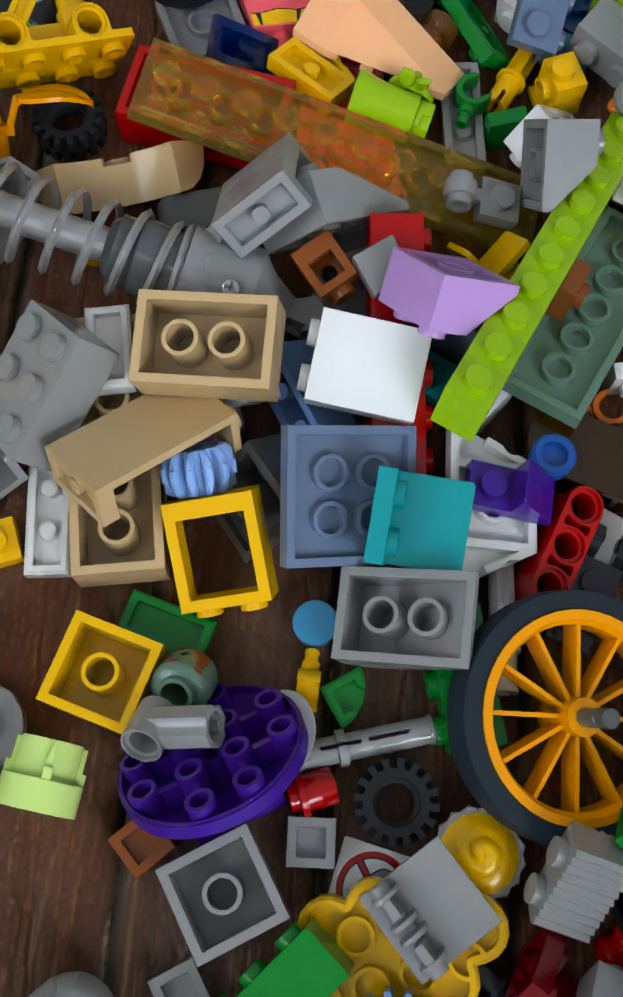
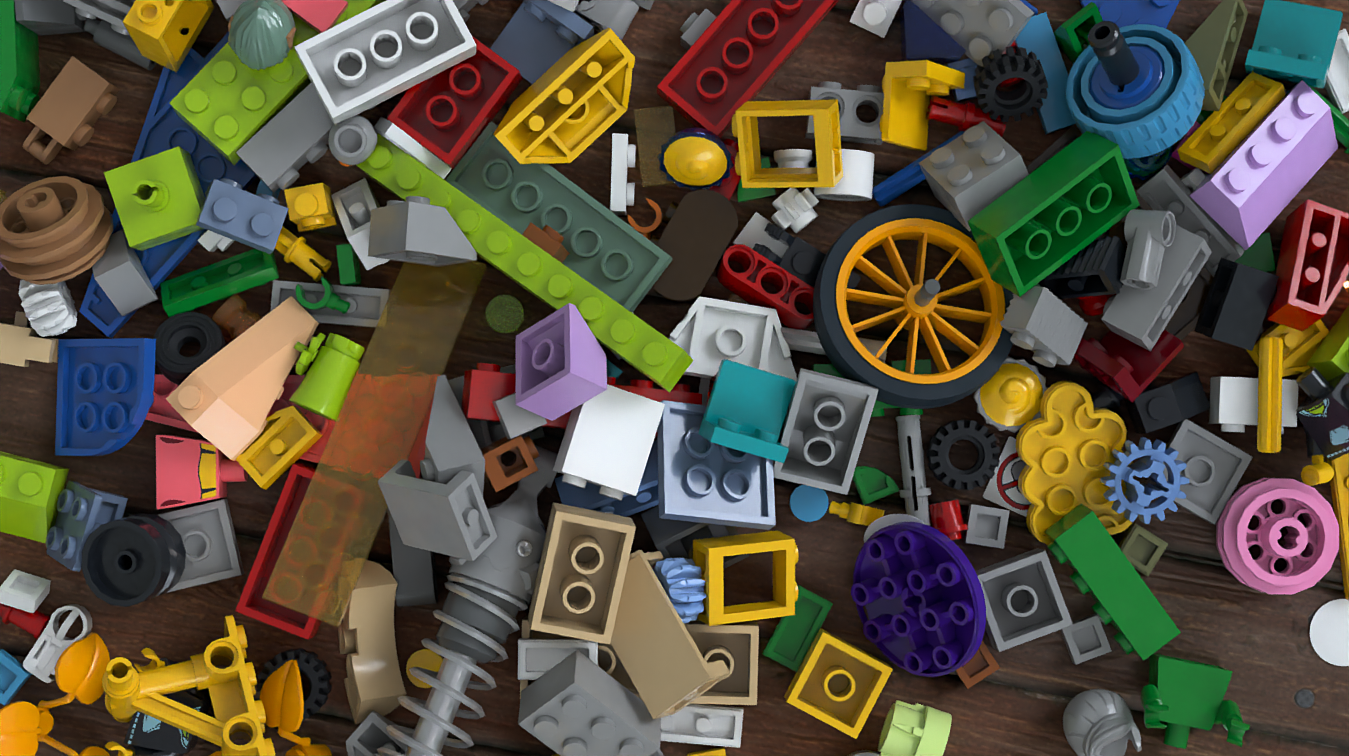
camera: 85 degrees left, 15 degrees up
(163, 726) = (891, 637): light grey piece -> none
(185, 677) = (851, 617): sand green head -> none
(239, 45) = (243, 512): clear blue slope -> none
(430, 910) = (1051, 442): light grey hinge -> none
(492, 199) = (436, 292): light grey plate -> none
(501, 256) = (498, 298): yellow bracket -> none
(512, 493) = (724, 325): dark purple slope -> none
(554, 455) = (694, 282): blue tile -> none

